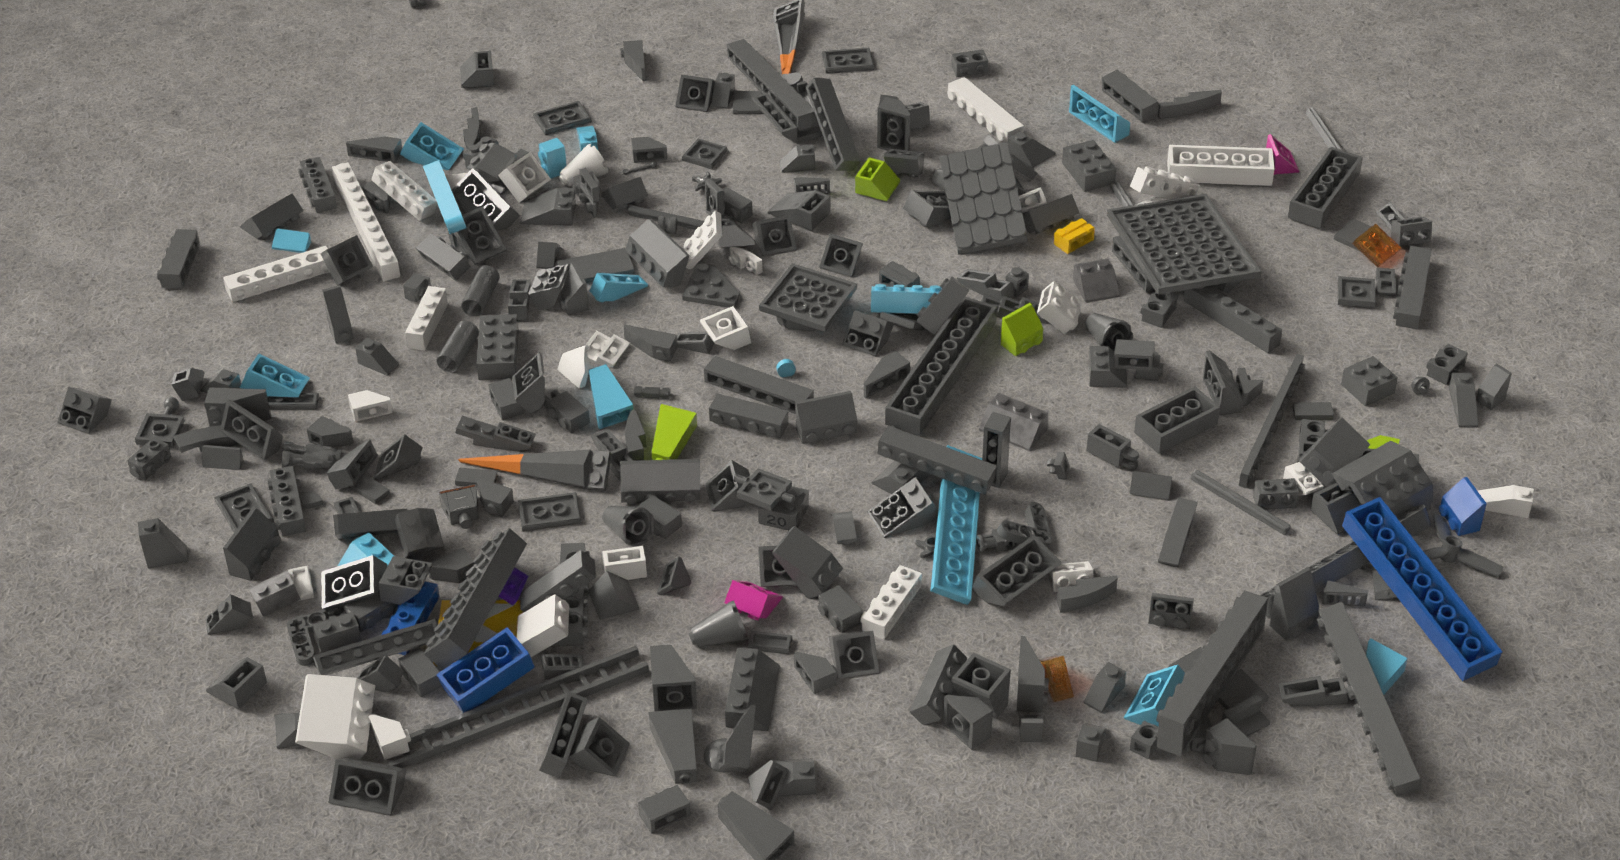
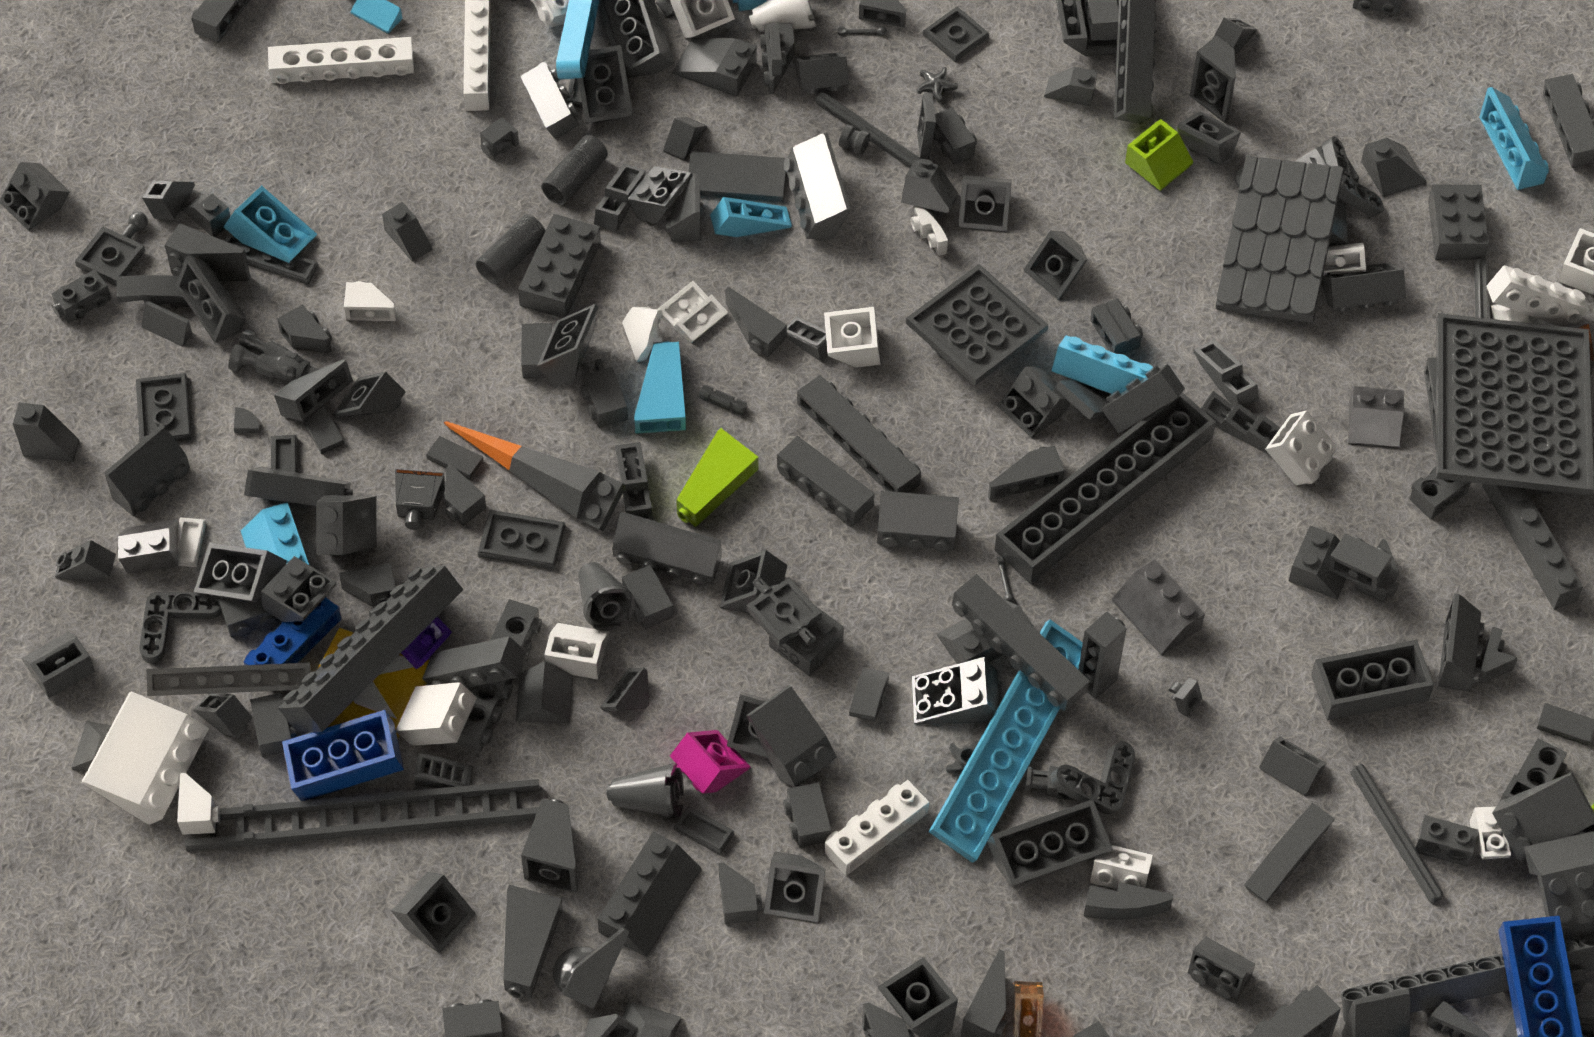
camera: 20 degrees right, 15 degrees up
(287, 501) = (216, 416): dark grey brick -> none
(337, 314) = (379, 156): dark grey slope -> none
(337, 632) = (197, 633): dark grey brick -> none
(346, 260) = (426, 70): dark grey brick -> none
(366, 785) = (148, 861): dark grey slope -> none
(426, 318) = (491, 191): white brick -> none
(498, 437) = (501, 403): dark grey slope -> none
(563, 735) = (398, 878): dark grey brick -> none
(635, 437) = (668, 466): dark grey slope -> none
(703, 239) = (883, 185): white plate -> none
(710, 287) = (867, 257): dark grey plate -> none
(786, 368) = (905, 421): medium azure tile -> none
(805, 182) = (1068, 136): dark grey slope -> none
(805, 208) = (1040, 169): dark grey slope -> none
(919, 115) = (1256, 62): dark grey brick -> none
(928, 207) = (1206, 221): dark grey slope -> none
(937, 684) = (889, 956): dark grey brick -> none
(983, 109) = (1360, 81): white brick -> none
(1019, 280) = (1266, 379): dark grey brick -> none
(1021, 330) = (1234, 468): lime slope -> none
(1074, 236) = (1381, 332): yellow brick -> none
(1108, 329) = (1350, 508): dark grey cone -> none
(1112, 447) = (1265, 693): dark grey hinge -> none
(1270, 425) = (1495, 728): dark grey plate -> none
(1332, 504) = (1514, 891): dark grey slope -> none

